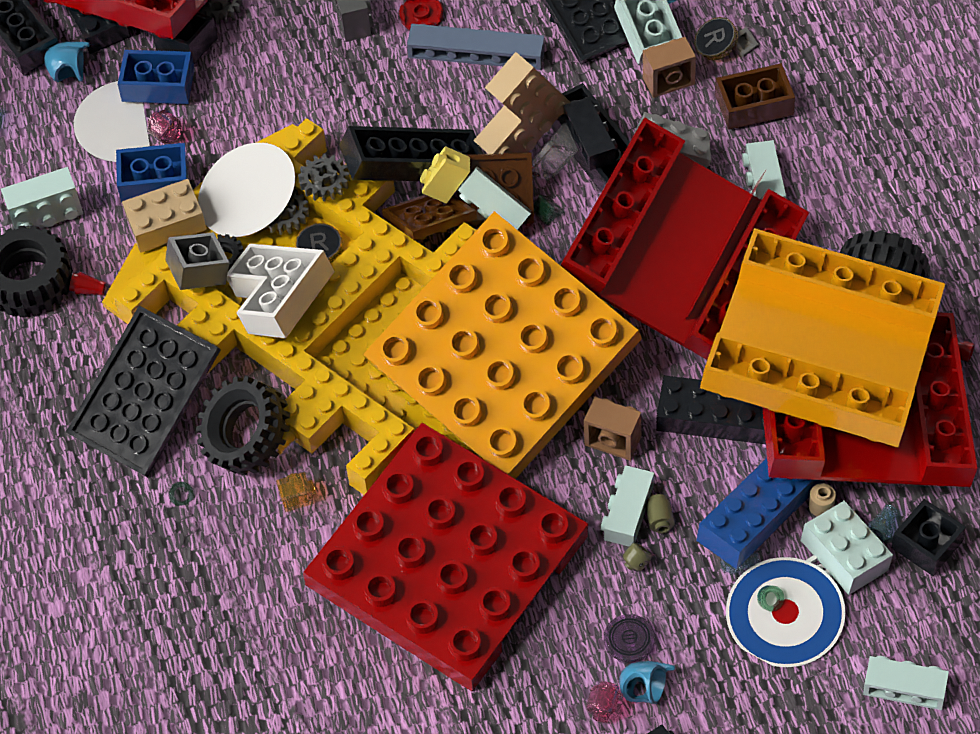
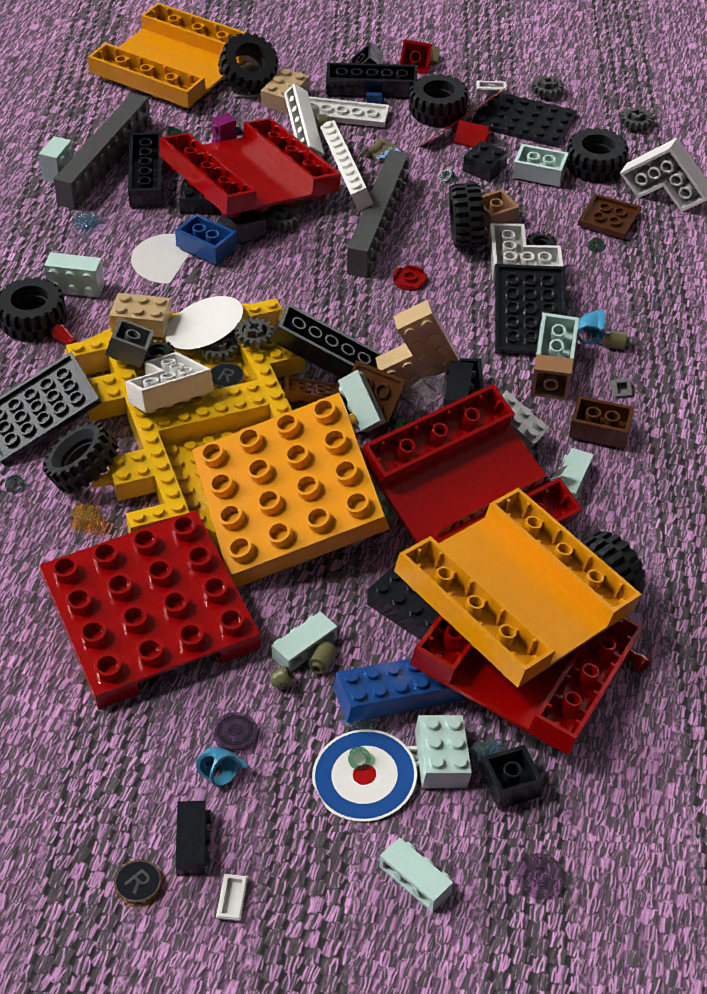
camera: 25 degrees right, 10 degrees down
(65, 60) = (159, 208): dark azure piece -> none
(150, 168) = (158, 283): blue brick -> none
(164, 126) = (187, 268): clear pink head -> none
(445, 174) = (335, 368): light yellow brick -> none
(473, 45) = (456, 324): sand blue brick -> none
(604, 701) = (179, 764): clear pink head -> none
(612, 428) = (330, 582): medium nougat brick -> none
(716, 38) = (601, 376): tile -> none
(821, 499) = (449, 705): tan brick -> none

